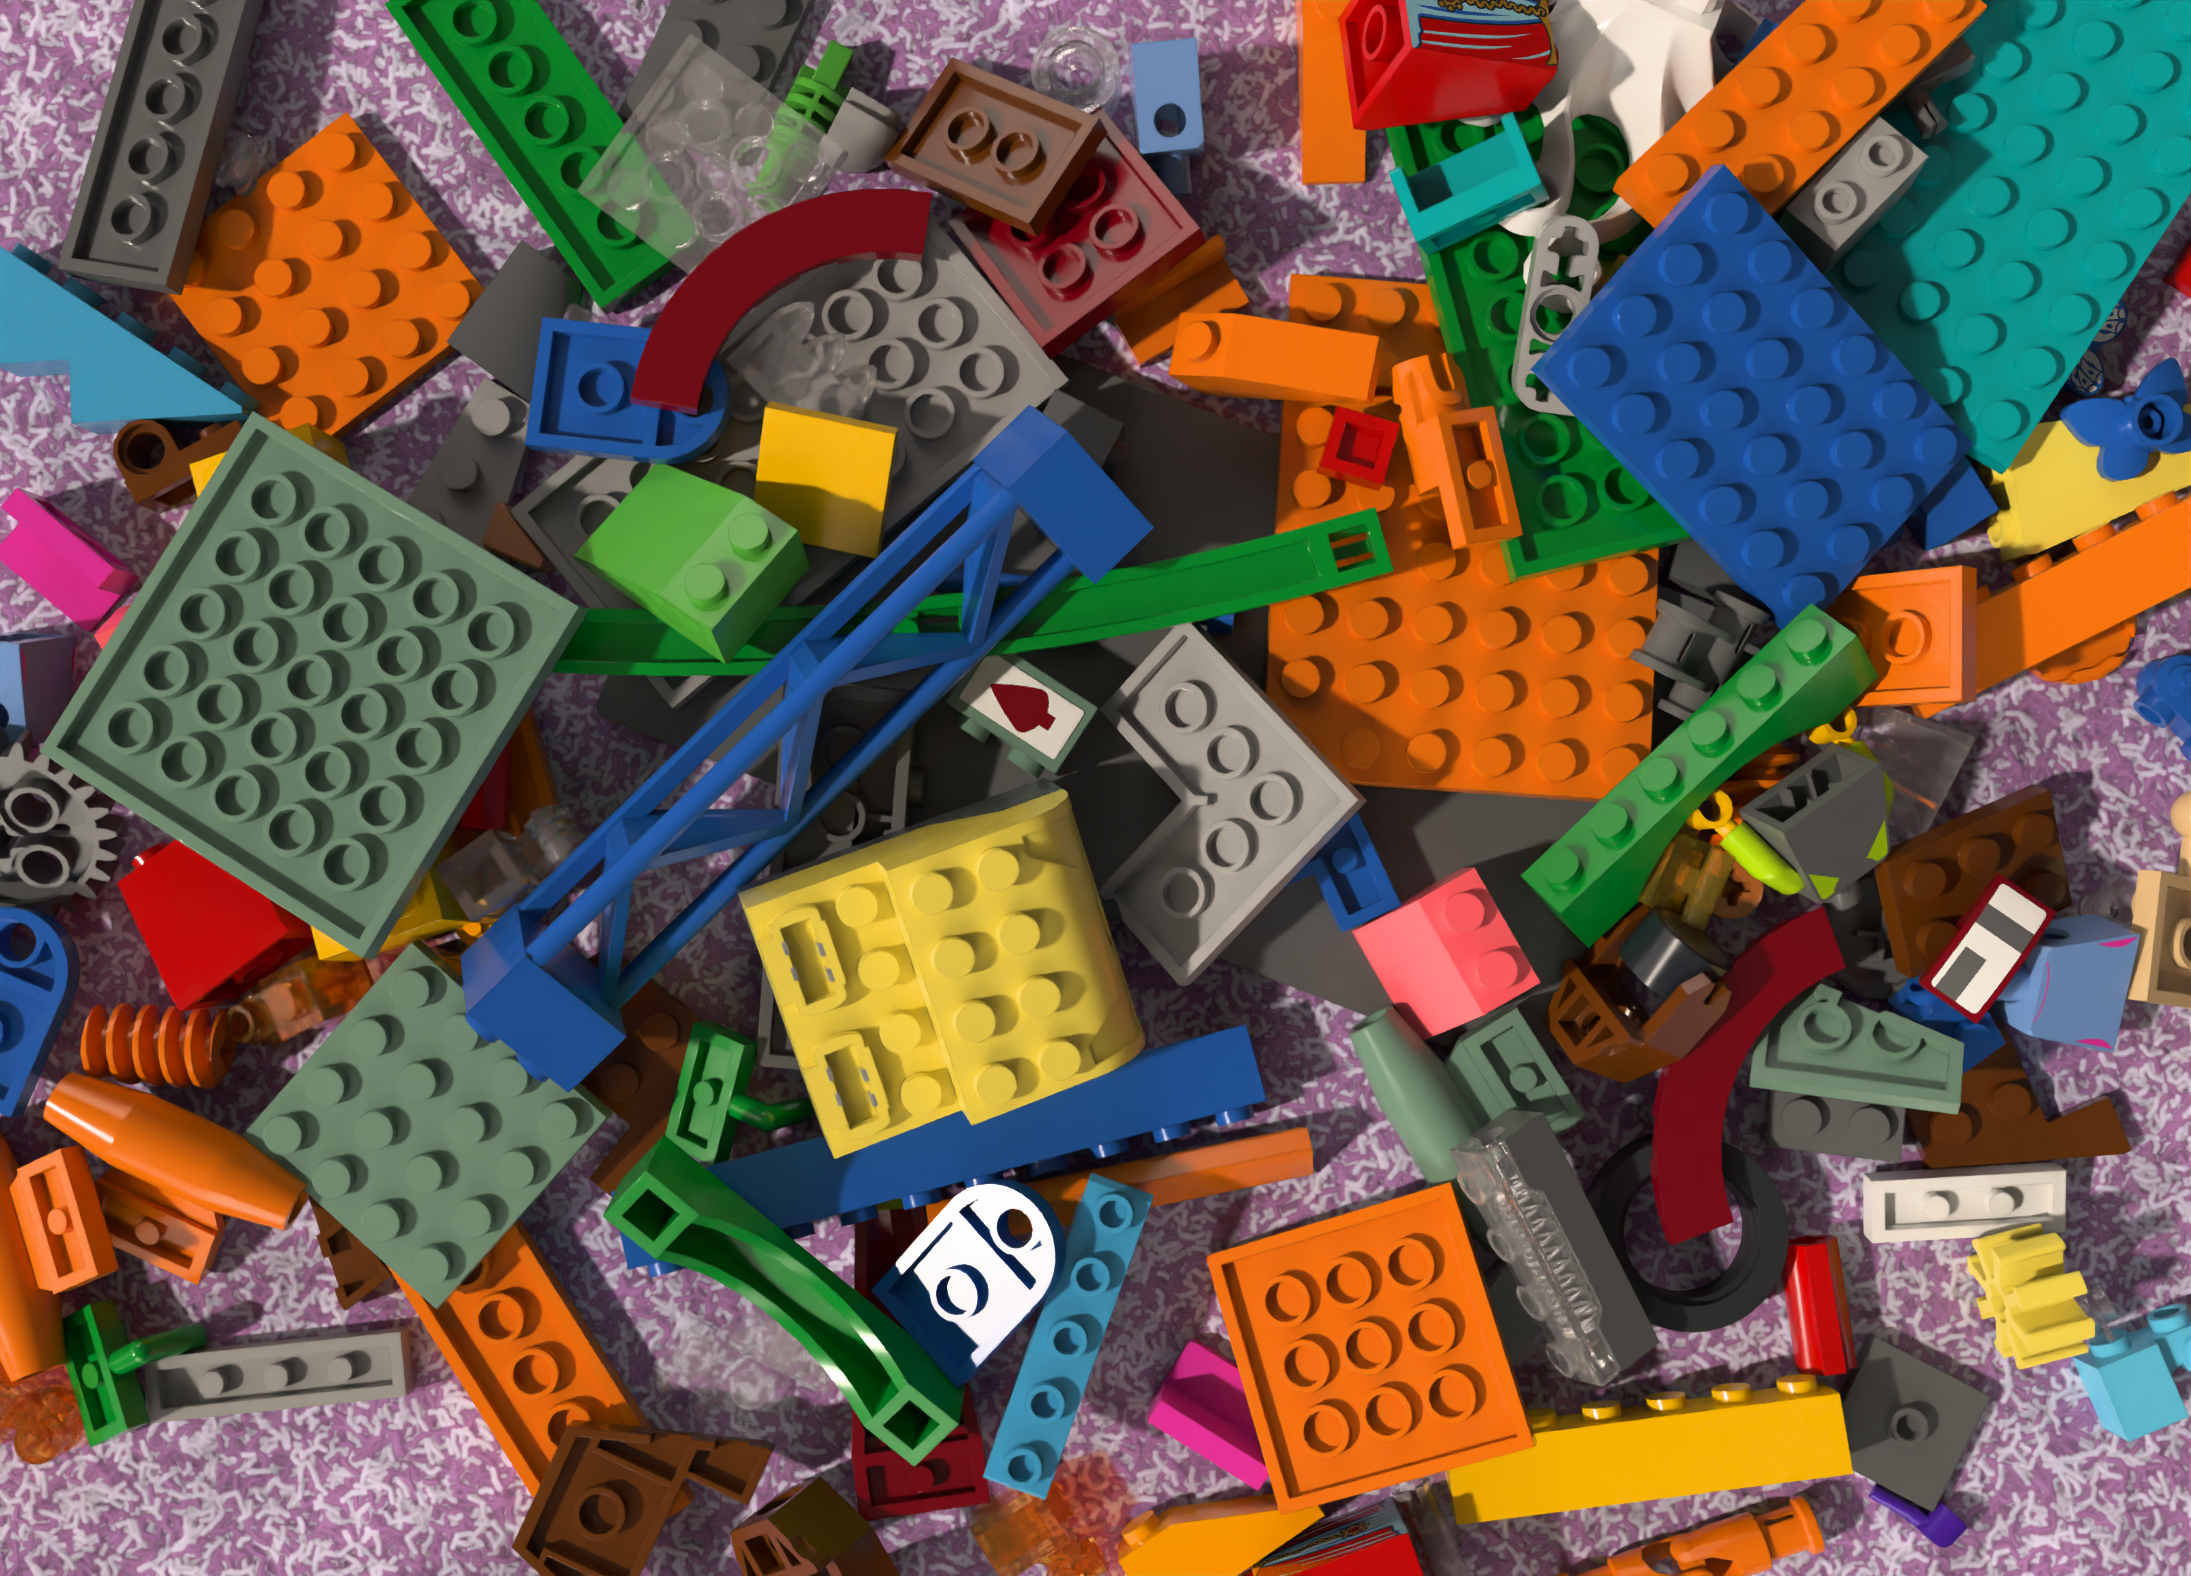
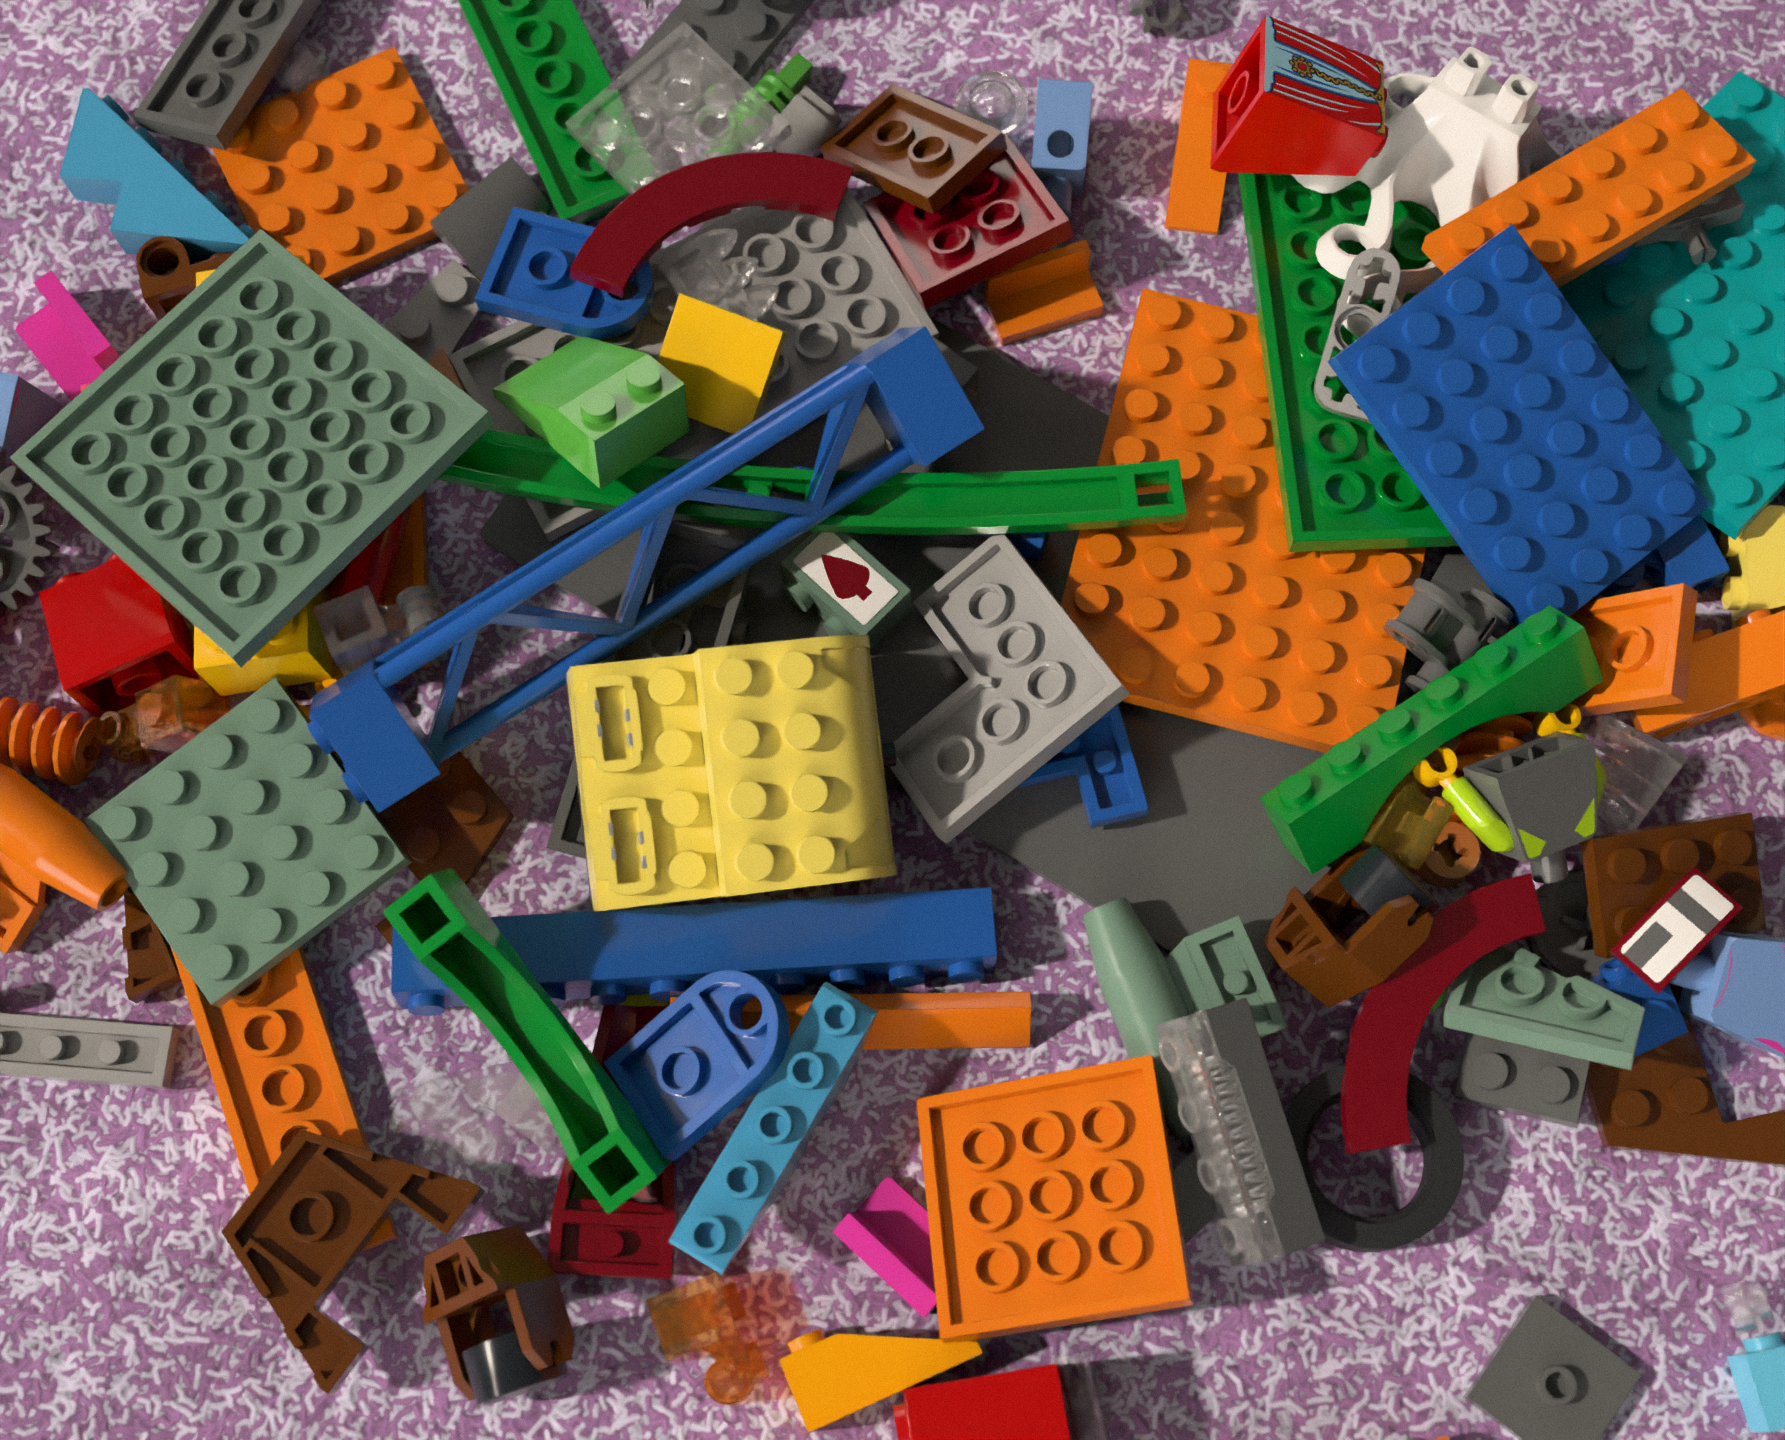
camera: 10 degrees right, 15 degrees down
(714, 1095) = (507, 862): green plate -> none
(1274, 359) = (1112, 342): orange slope -> none
(1358, 448) = (1173, 420): red plate -> none
(1446, 955) = (1182, 859): coral slope -> none
(1455, 451) = (1256, 431): orange plate -> none
(1471, 189) = (1302, 232): teal panel -> none
(1660, 1450) = (1303, 1354): yellow brick -> none
(1817, 1306) = (1483, 1252): red axle -> none
(1852, 193) = (1629, 288): light grey brick -> none
(1963, 1201) = (1636, 1182): white plate -> none
(2030, 1296) = (1687, 1271): light yellow gear -> none

